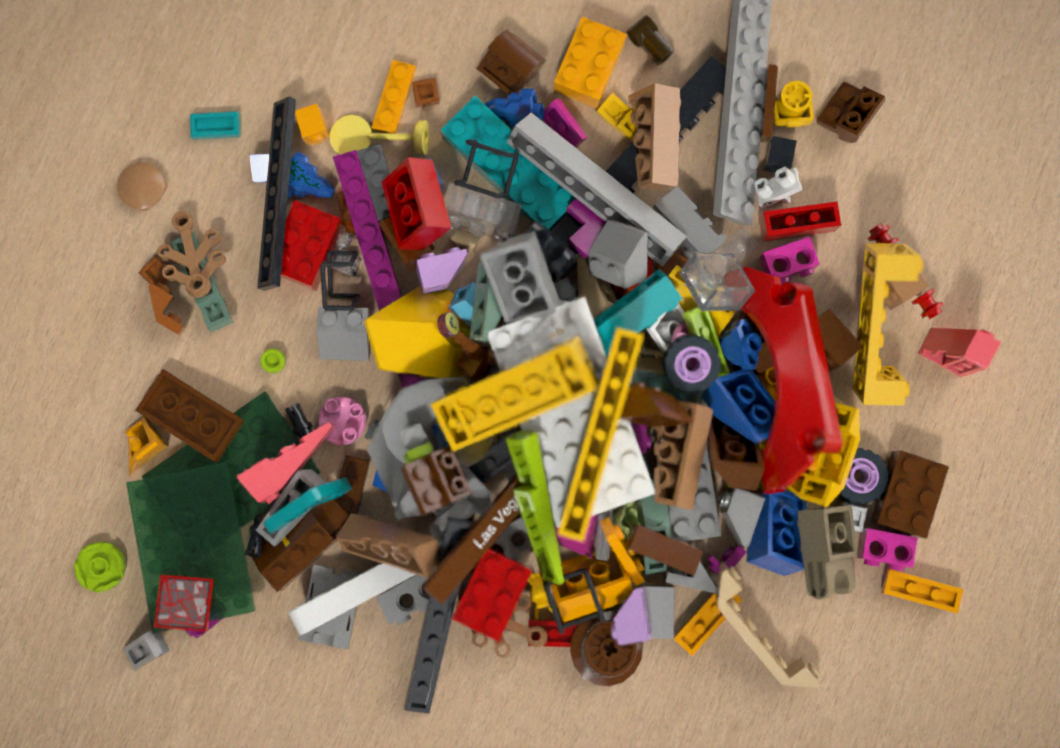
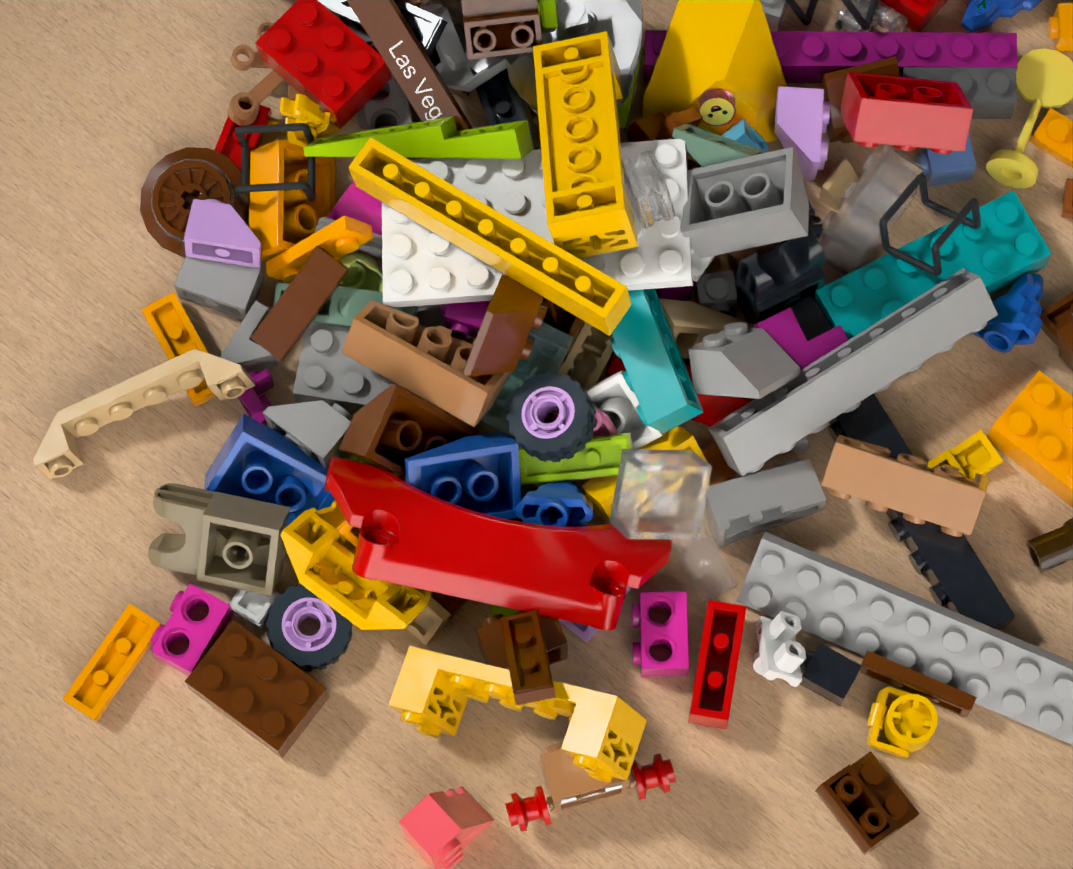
camera: 105 degrees right, 10 degrees down
(563, 123) = (971, 374): dark pink plate -> none
(859, 323) = (527, 657): none -> reddish brown tile

